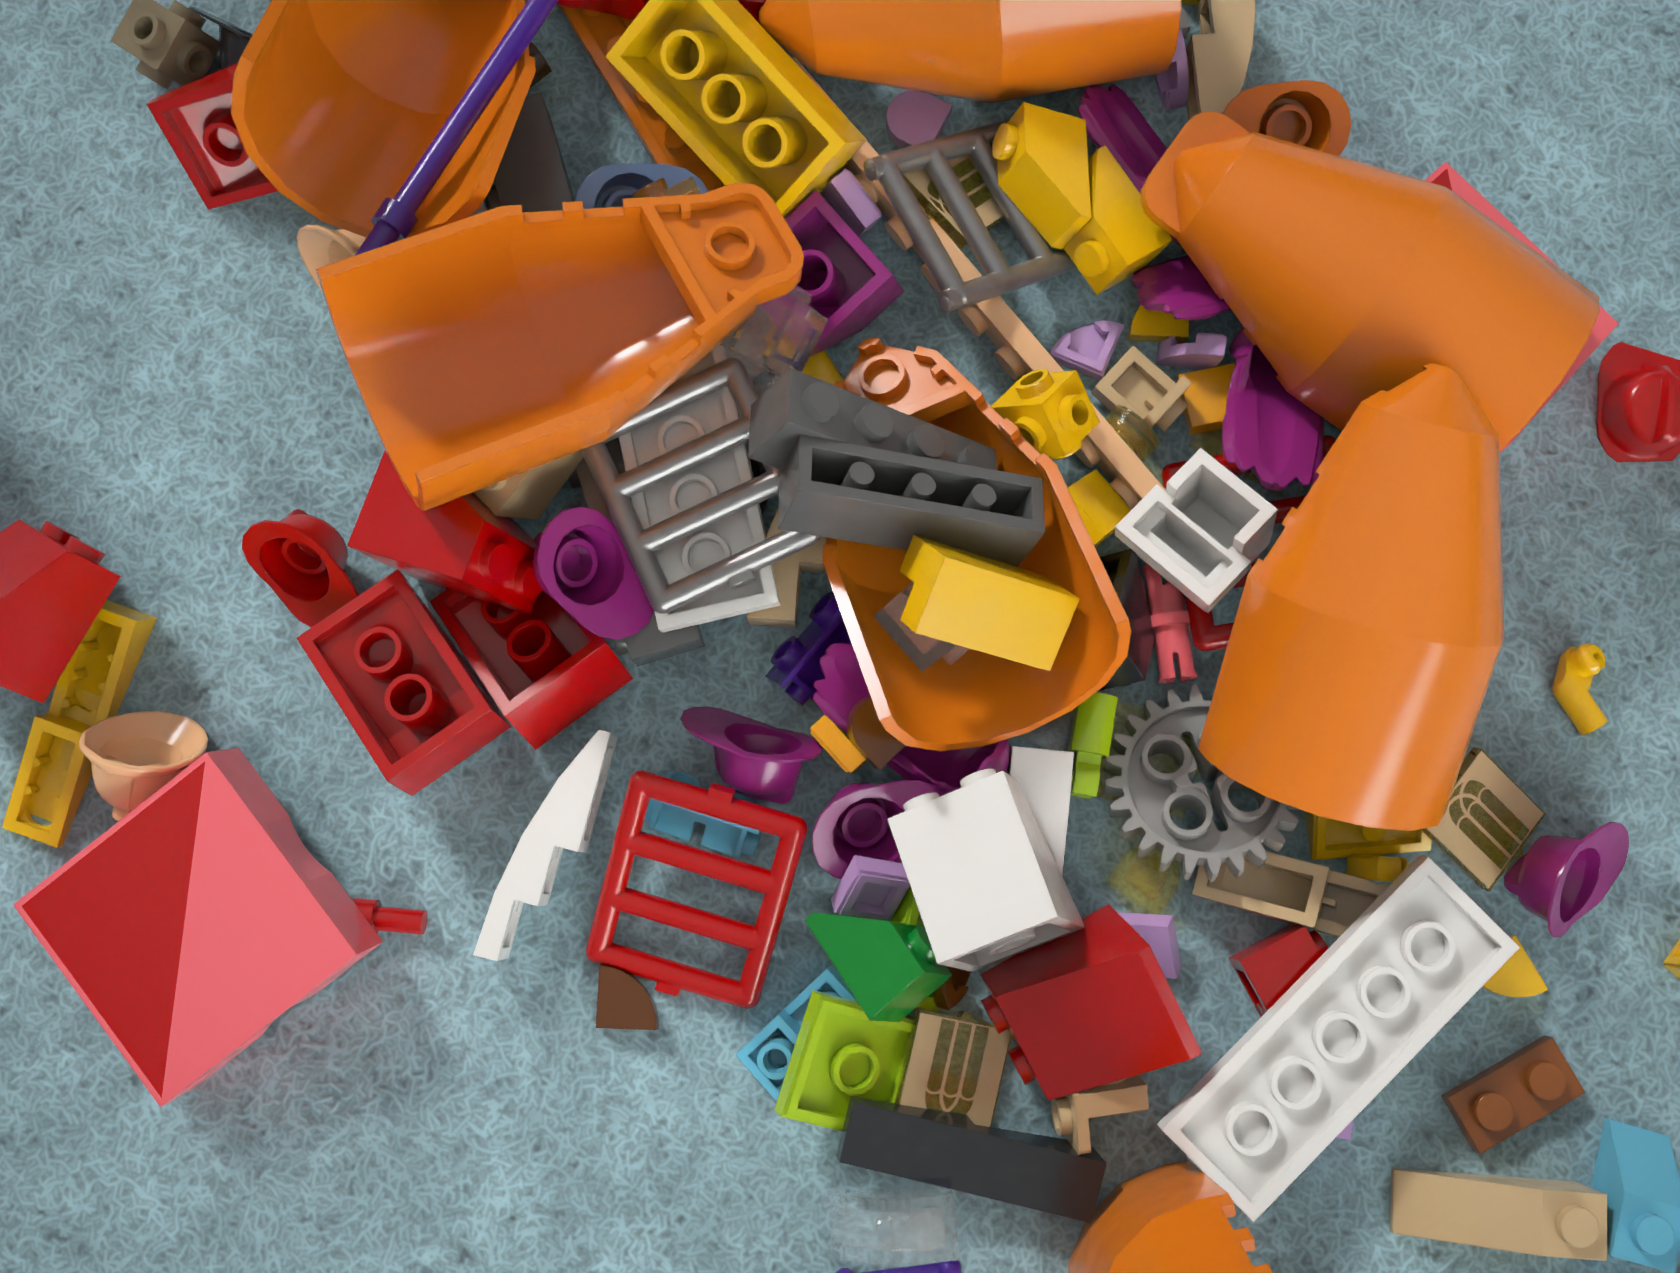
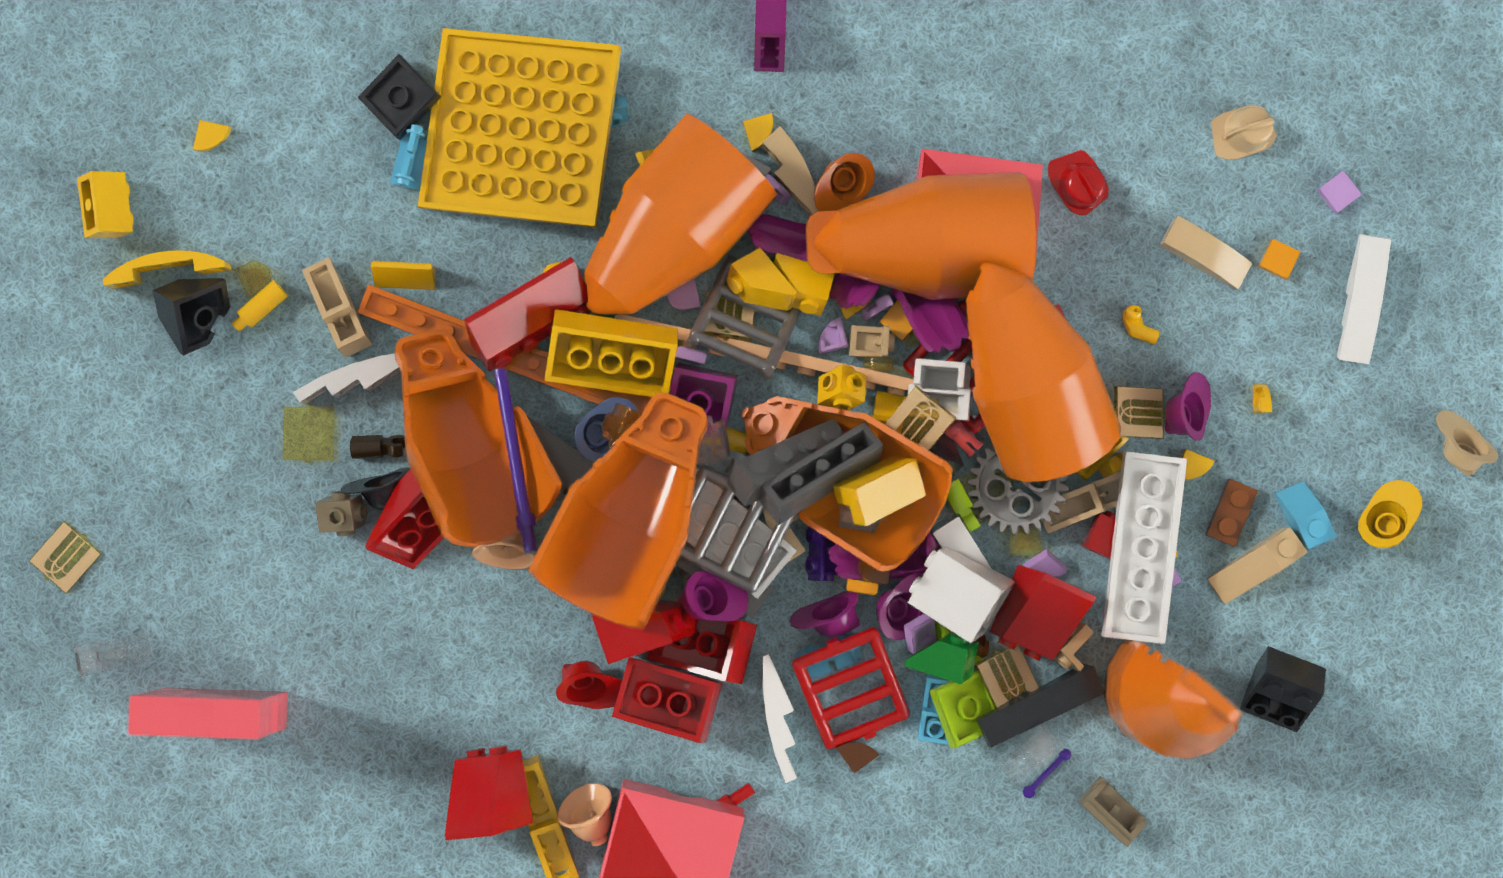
camera: 40 degrees left, 5 degrees up
(1140, 546) = (920, 418): none -> piece

